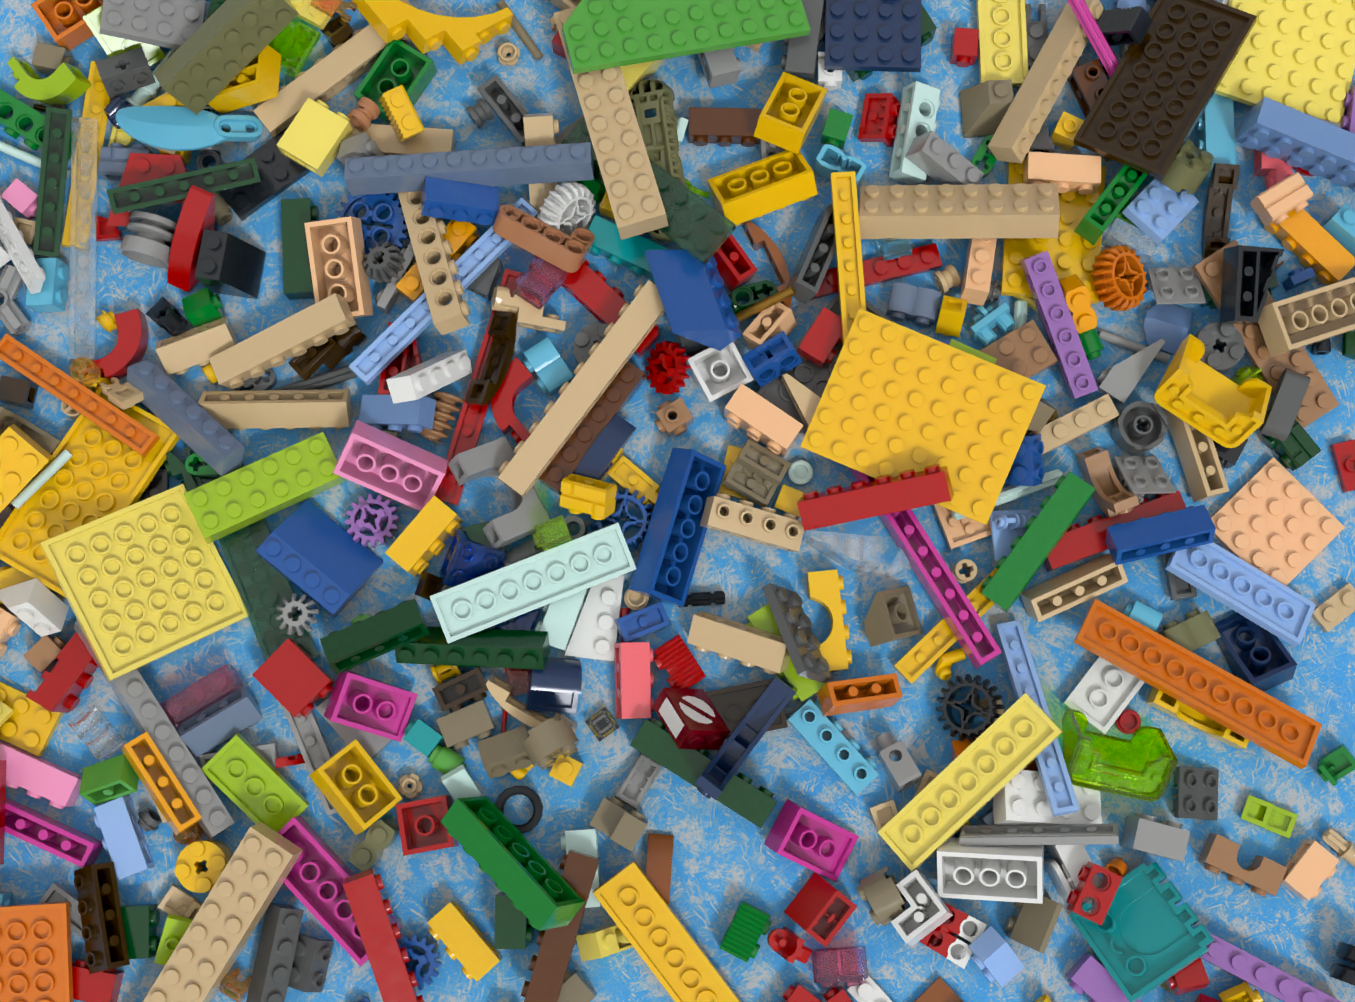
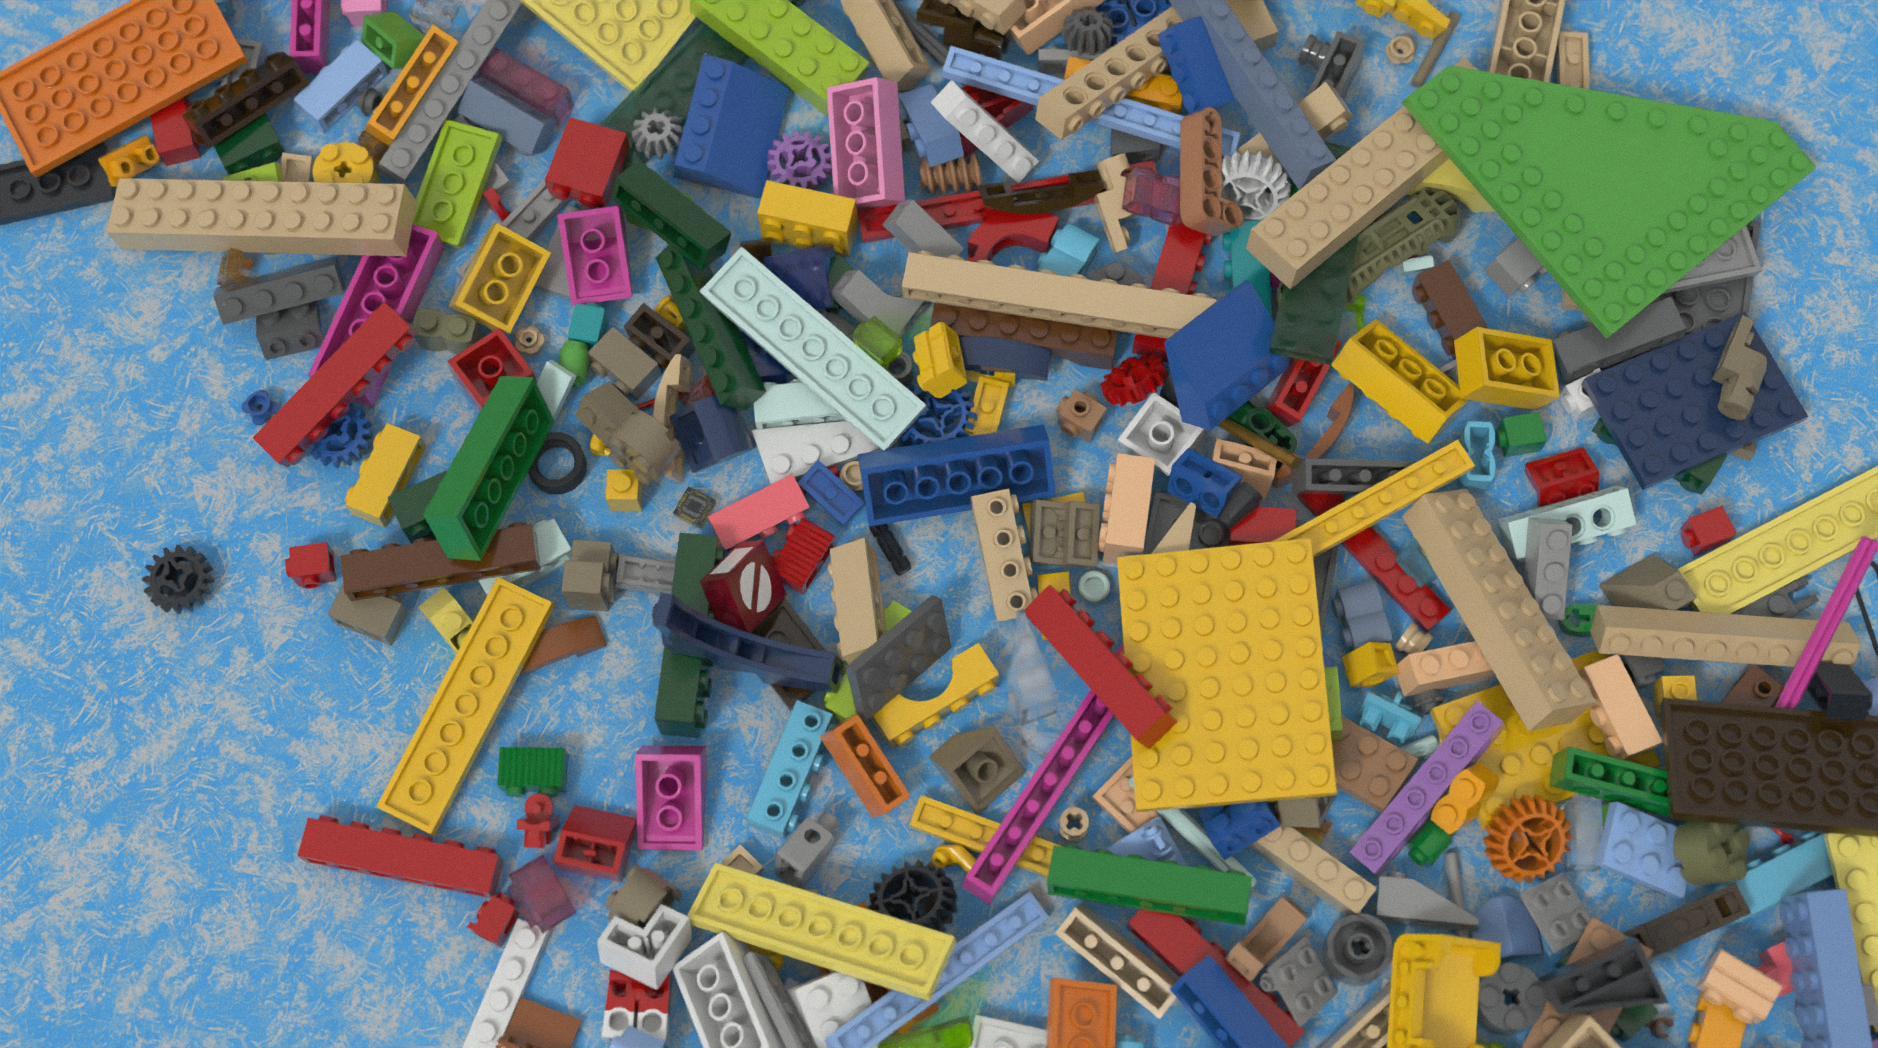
camera: 65 degrees right, 10 degrees down
(804, 342) = (1239, 505): none -> black cone

